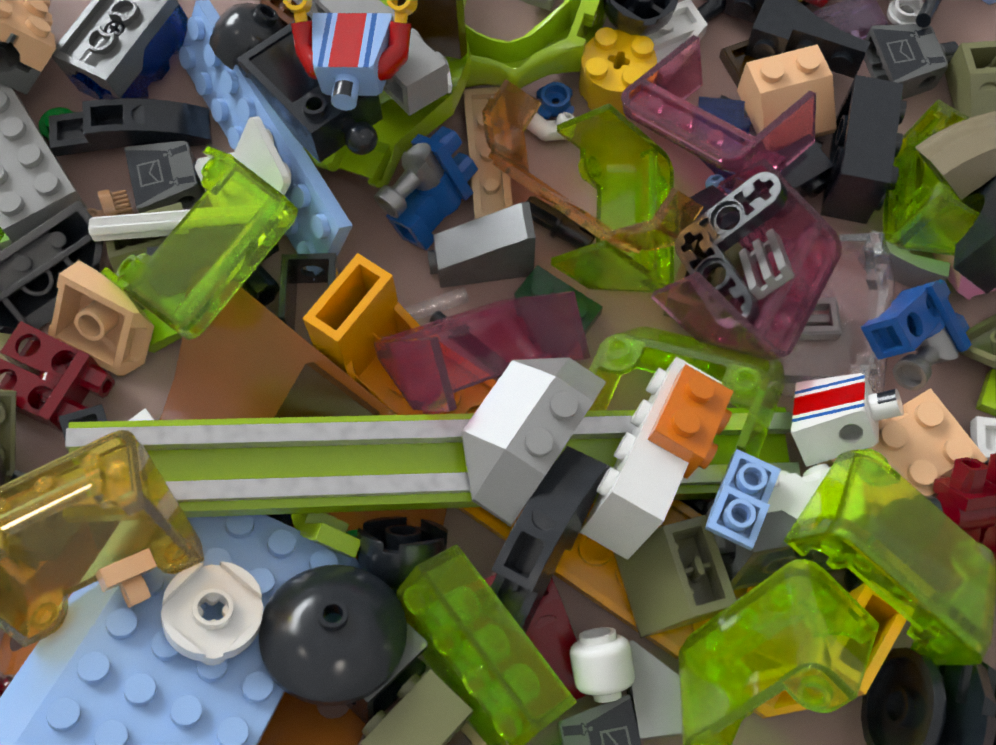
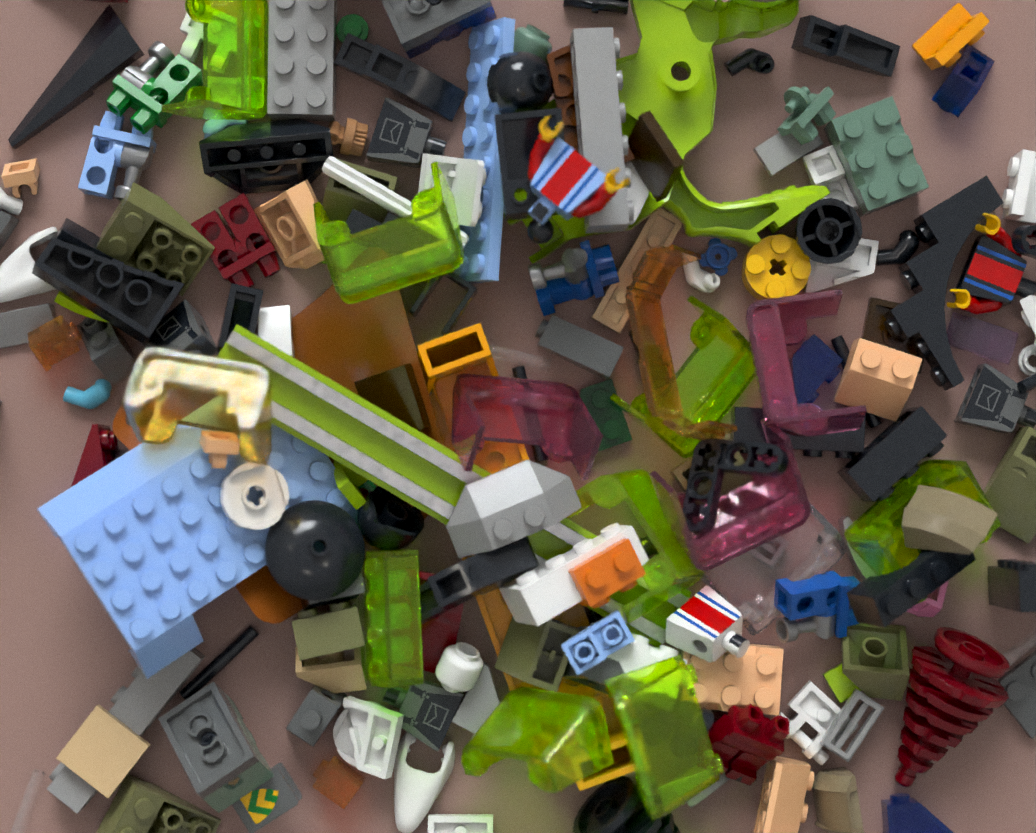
camera: 30 degrees right, 20 degrees up
(759, 254) = (739, 498): light grey tile -> none

